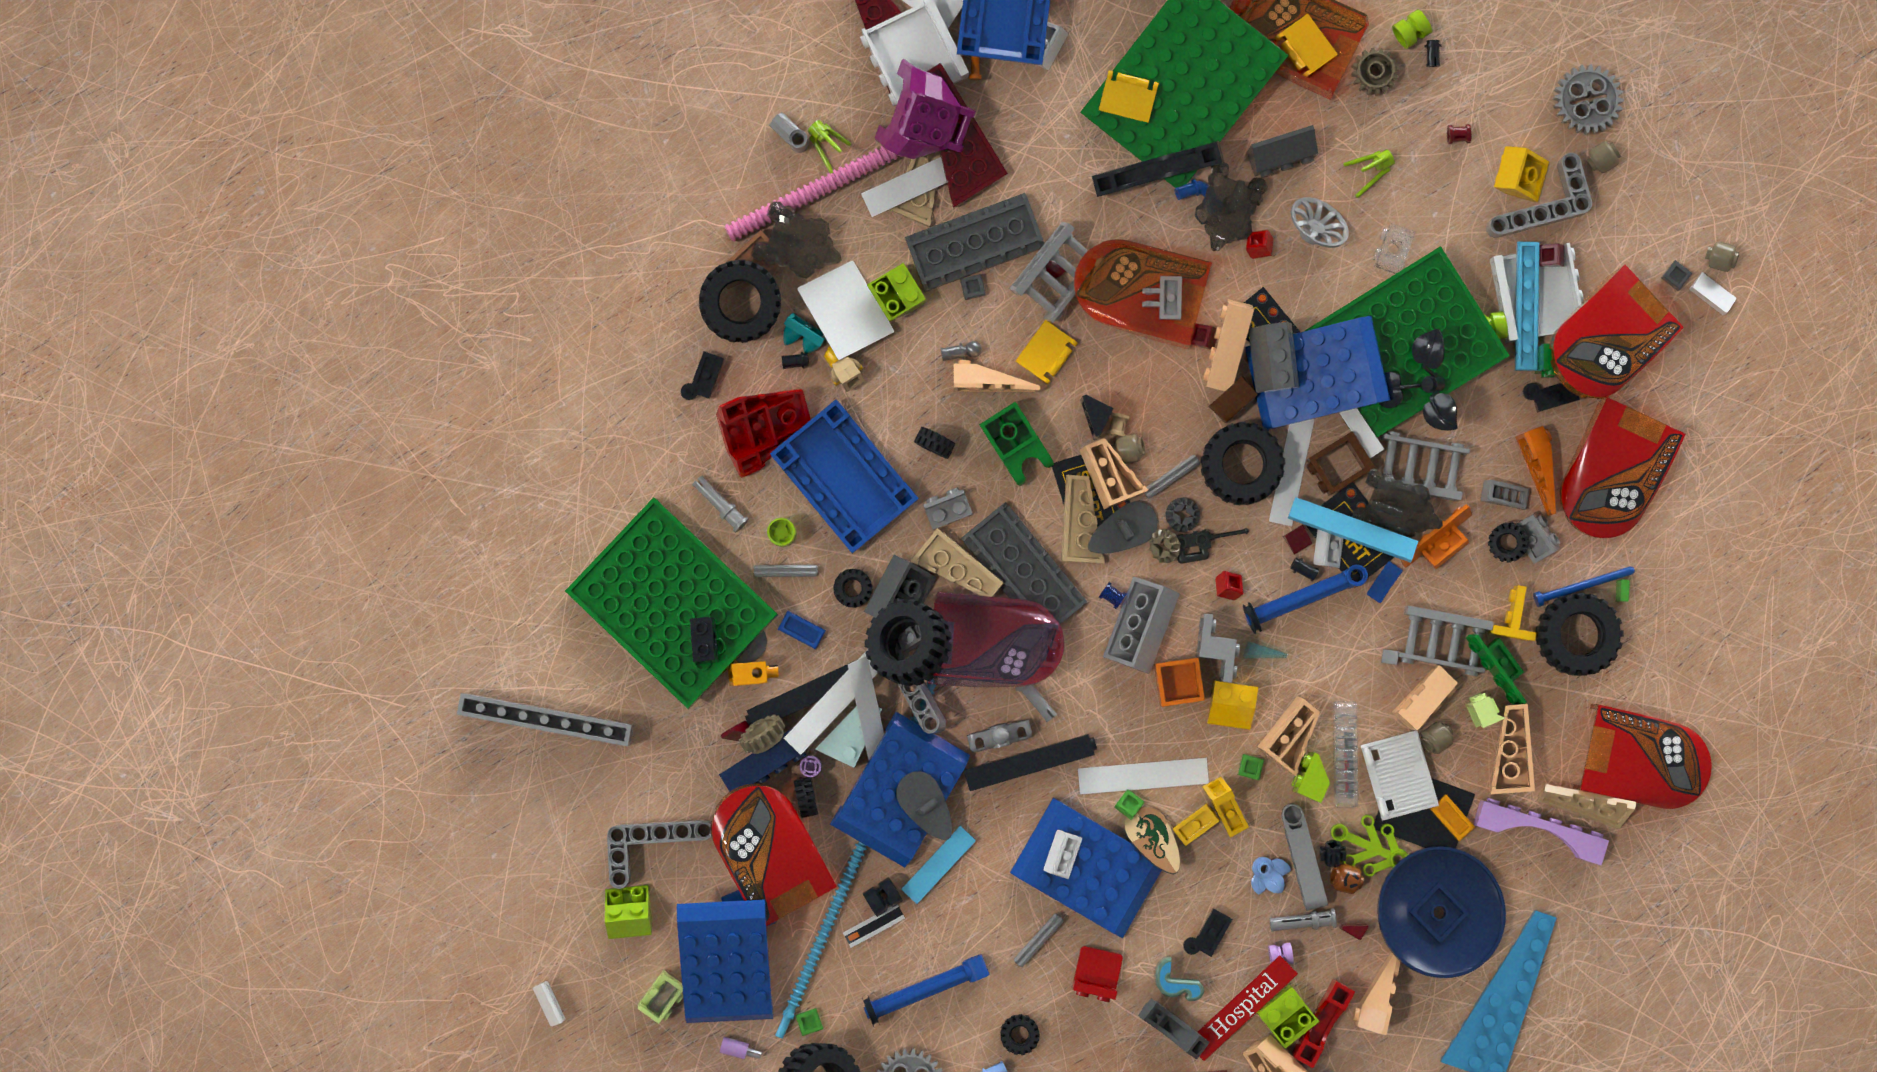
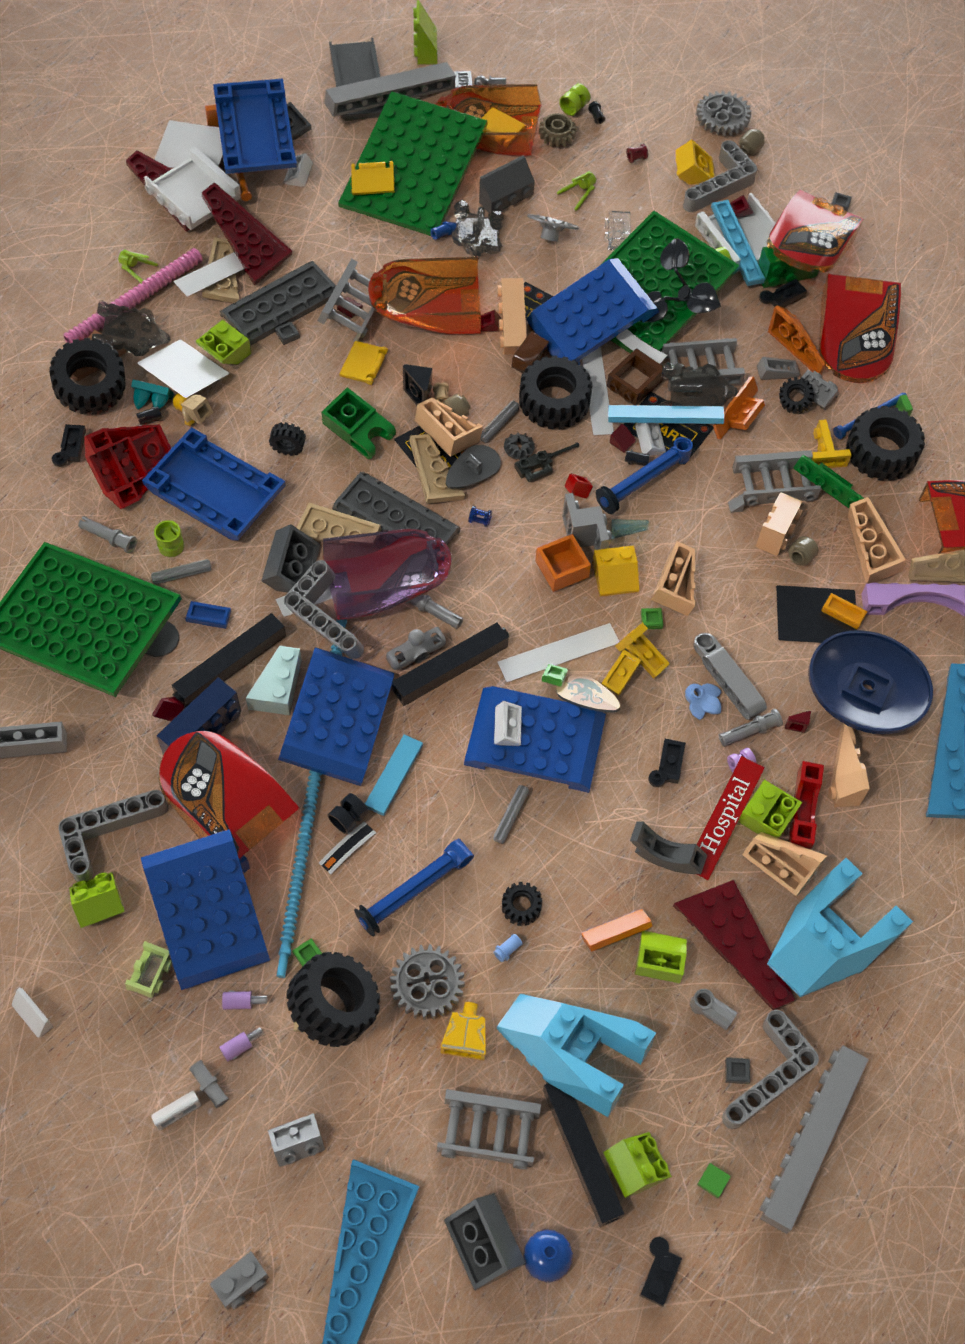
camera: 20 degrees left, 25 degrees down
(704, 640) = (115, 628): black brick -> none
(741, 673) = (167, 655): light orange torso -> none
(762, 734) = (190, 689): dark tan gear -> none
(788, 132) = (107, 264): light grey piece -> none
(805, 797) = (248, 742): black tyre -> none
(810, 763) = (246, 725): lavender wheel -> none
(823, 713) = (253, 650): white sticker -> none
(843, 578) = (242, 559): black tyre -> none
(866, 704) = (283, 641): white sticker -> none
(886, 631) = (319, 587): black tyre -> none
(924, 116) = (211, 215): magenta piece -> none
(925, 804) = (364, 715): dark grey shield -> none
(947, 509) = (313, 488): light grey bracket -> none
(972, 349) = (300, 372): flat silver pin -> none
(977, 378) = (317, 389): light nougat wedge -> none
(1097, 973) = (577, 826): red bracket -> none
(1141, 625) = (513, 531): light grey slope -> none
(1158, 168) = (435, 200): black arch -> none
(1169, 297) = (451, 296): light grey hinge -> none
(1170, 541) = (517, 473): dark tan gear -> none
(1176, 986) = (656, 815): sand green animal -> none
(1259, 244) = (511, 252): red slope -> none
(1273, 357) = (551, 306): dark grey slope -> none
(1312, 780) = (710, 605): lime slope -> none
(1332, 853) = (753, 663): black gear -> none
(1345, 754) = (730, 585): clear beam -> none
(1346, 878) = (774, 681): dark orange head -> none
(1372, 847) = (785, 651): lime plant -> none
(1384, 582) = (707, 453): blue sticker -> none
(1400, 775) = (784, 589): white window -> none
(1483, 710) = (833, 516): yellowish green window -> none
(1712, 294) = (873, 207): white slope -> none
(1722, 256) = (869, 180): dark tan head -> none

